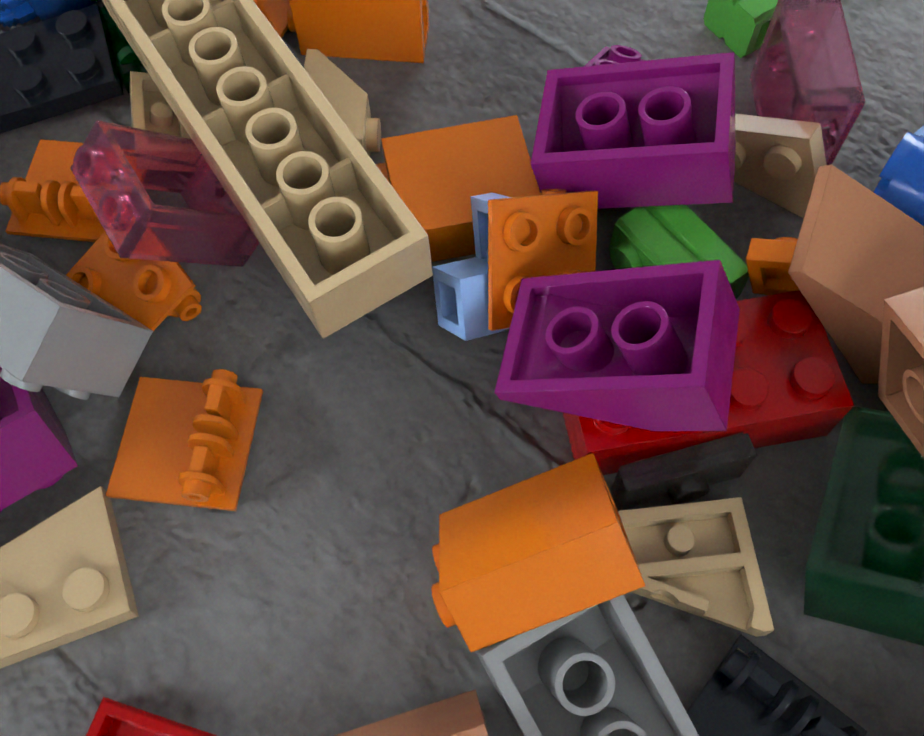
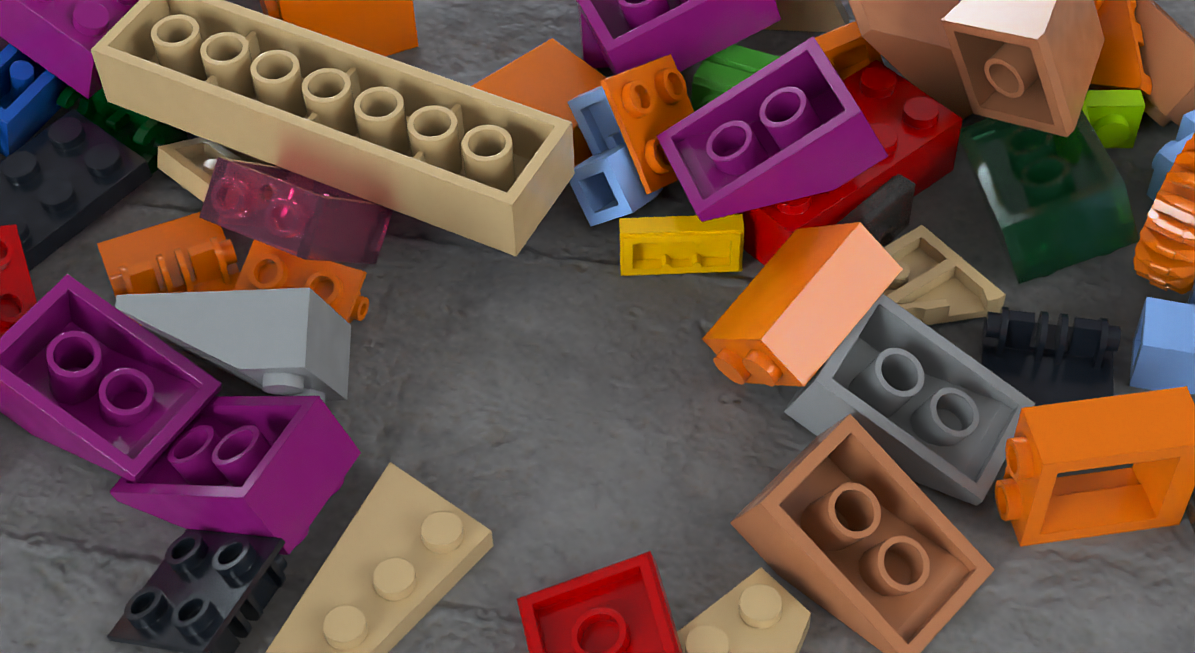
camera: 30 degrees left, 15 degrees down
(187, 442) = (438, 399): orange hinge -> none
(474, 386) = (680, 245): none -> yellow plate

